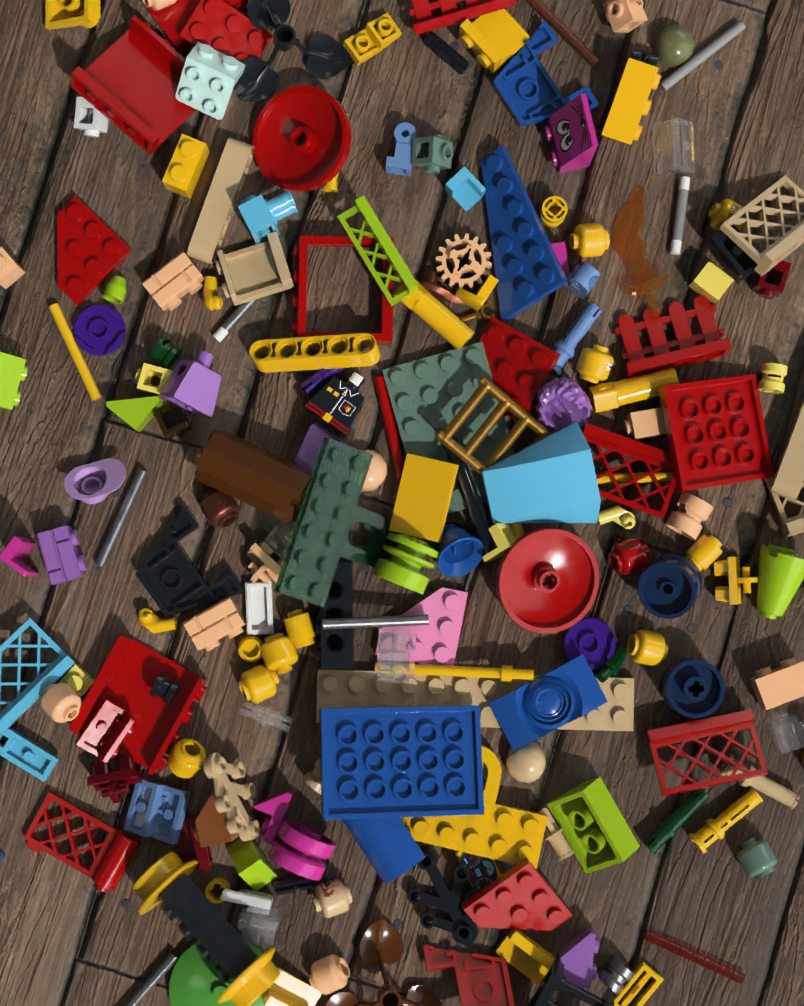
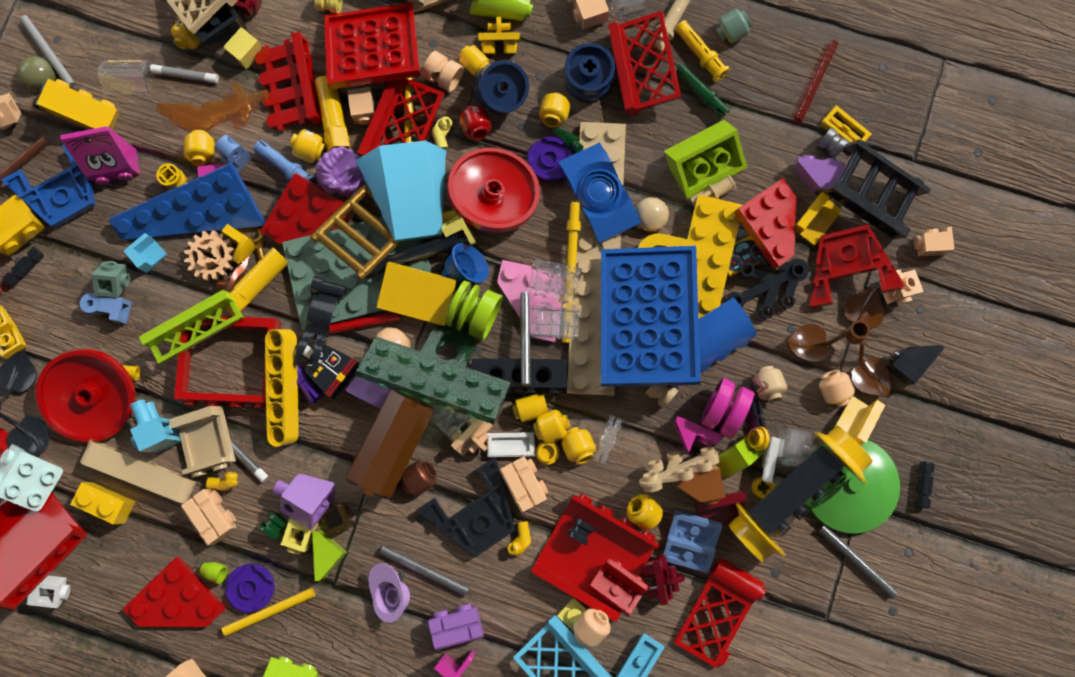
camera: 85 degrees left, 5 degrees down
(269, 885) = (758, 438): none -> yellow plate
(394, 390) = (319, 317): none -> black flag
(440, 653) = (554, 280): none -> clear brick

